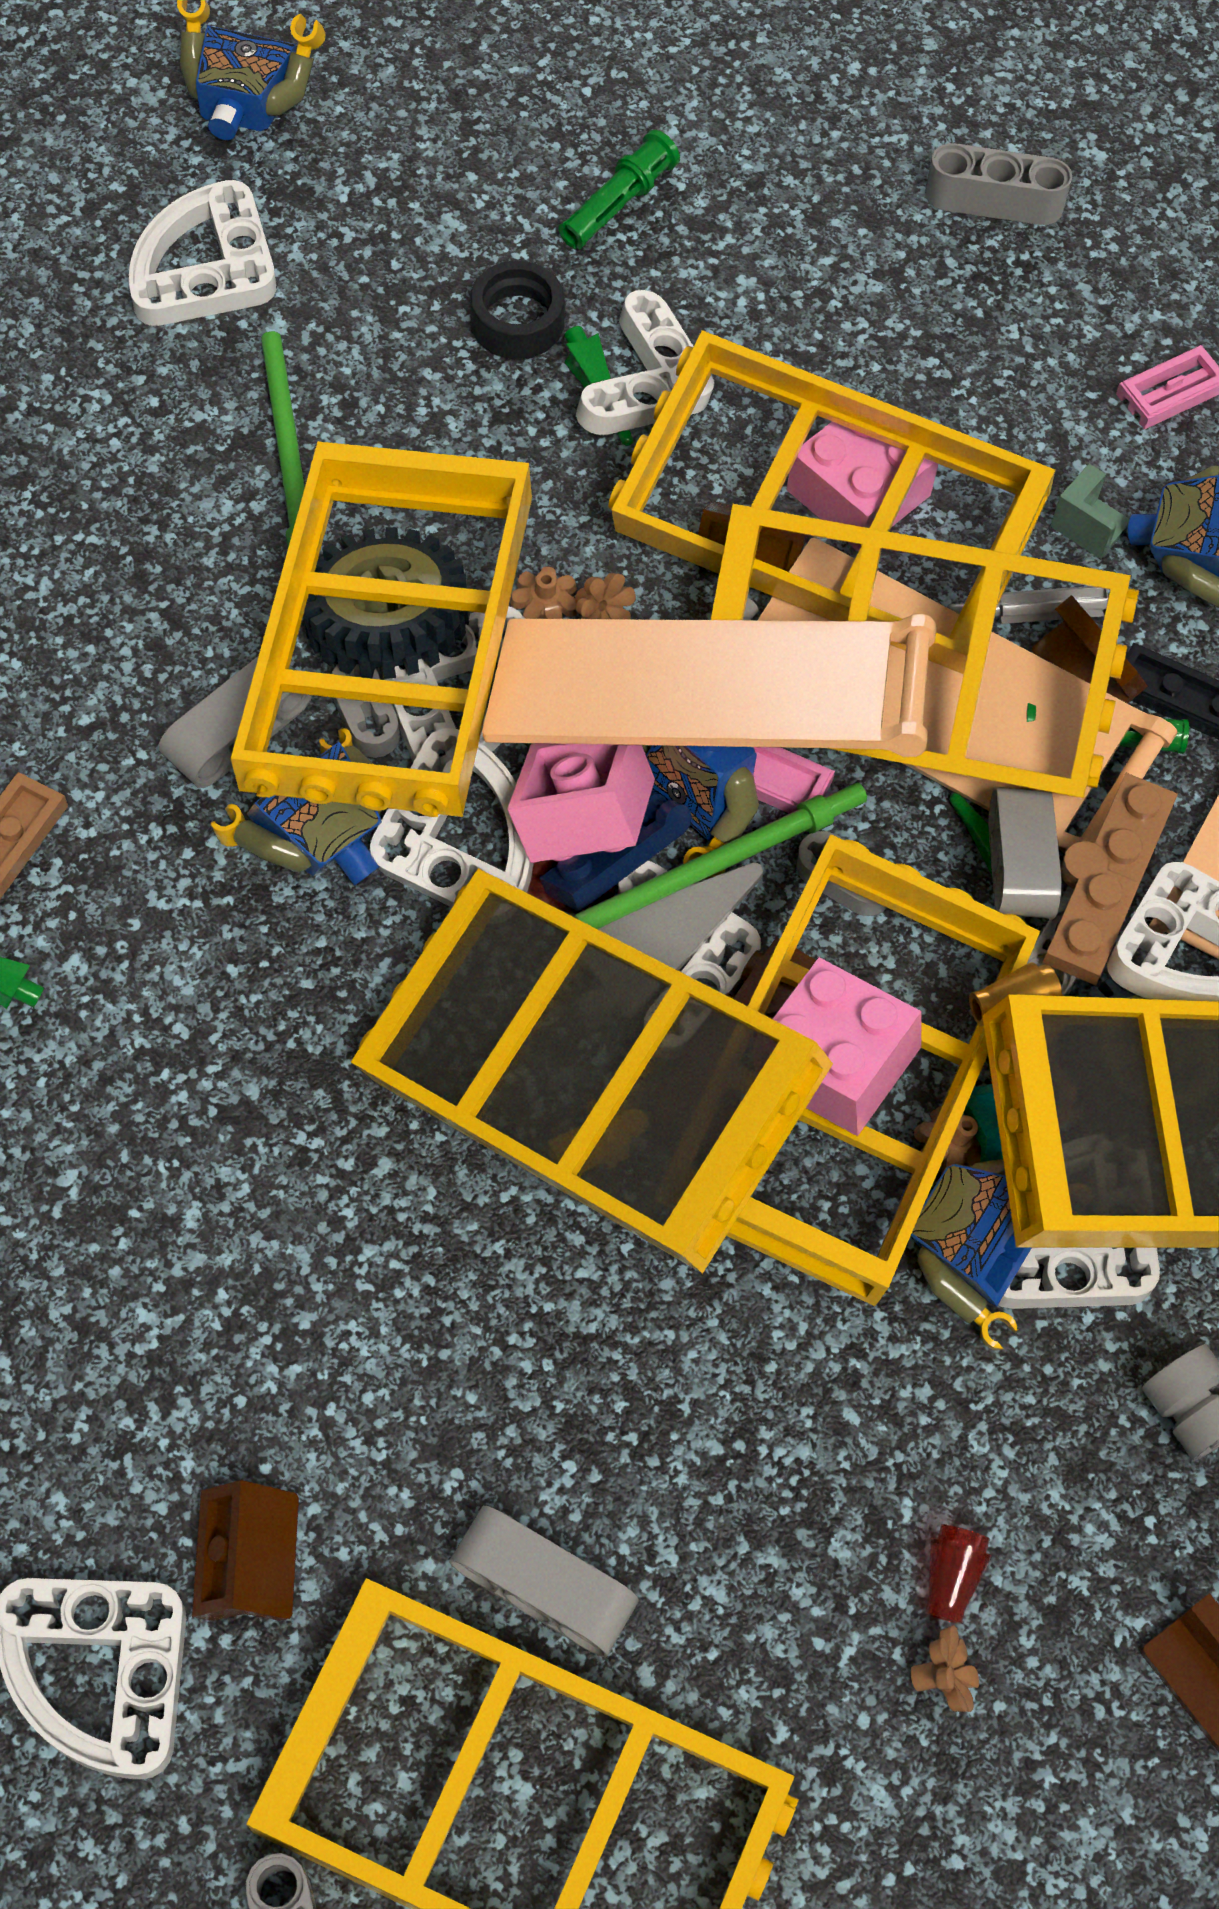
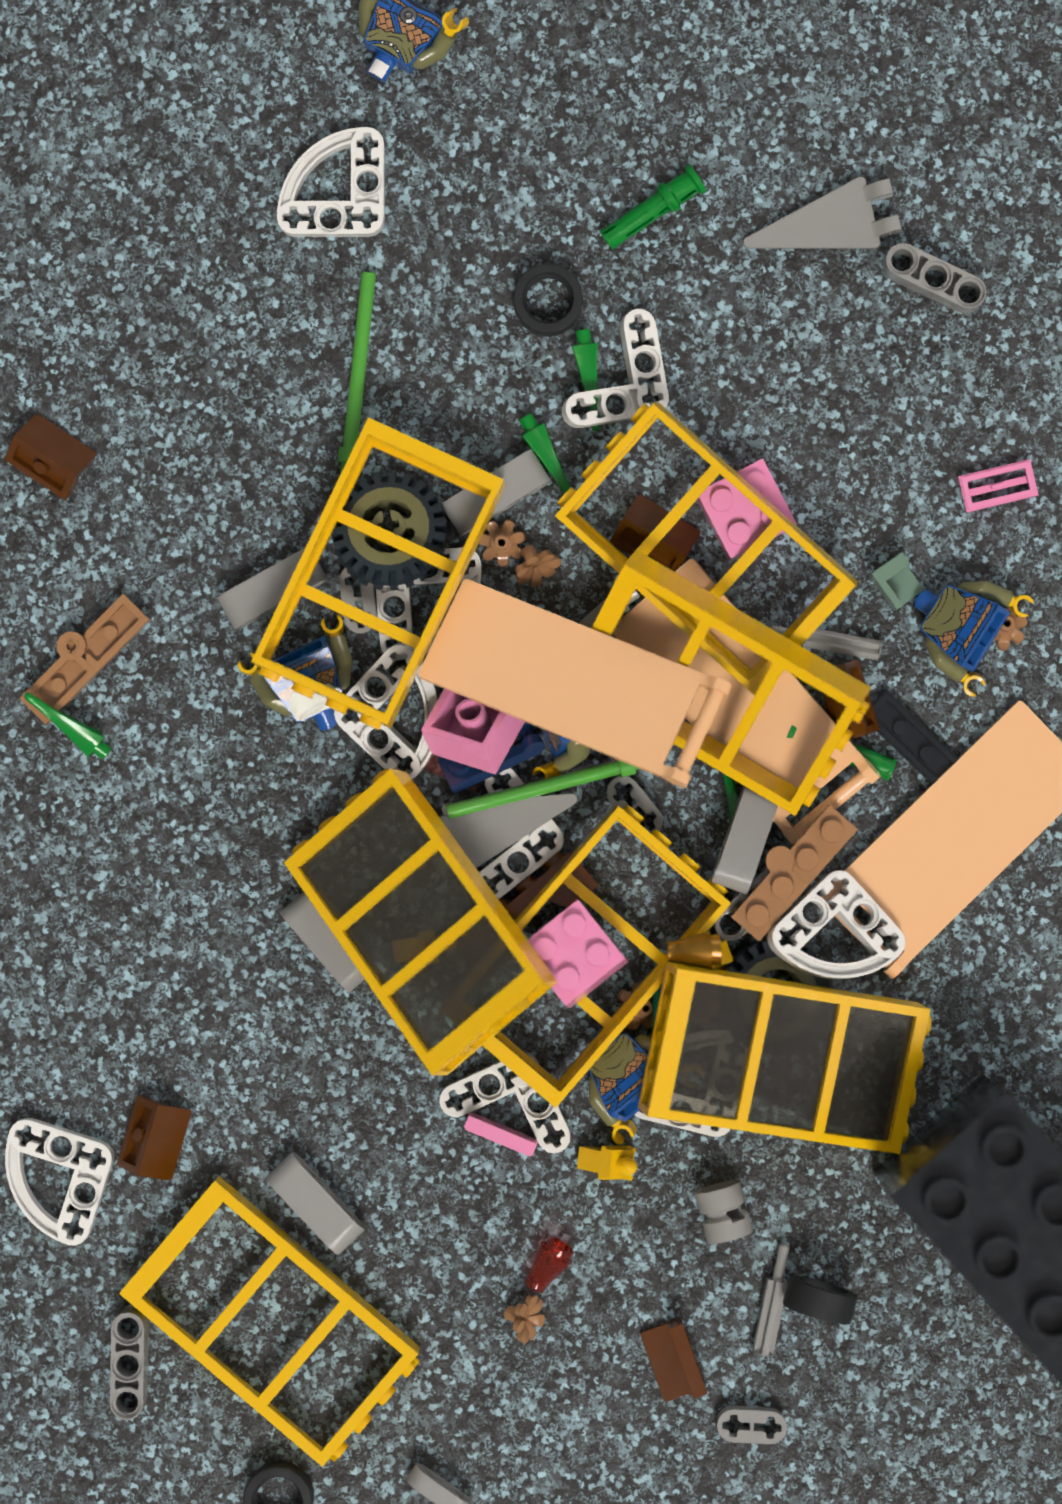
camera: 15 degrees right, 25 degrees up
(450, 1167) = (318, 937): none -> light grey beam
(552, 517) = (522, 478): none -> light grey beam
(560, 469) = (539, 441): none -> green piece
(809, 1383) = (500, 1134): none -> bright pink tile
(818, 1311) = (522, 1092): none -> white beam
(850, 158) = (833, 221): none -> light grey flag
(995, 1374) = (608, 1161): none -> yellow piece

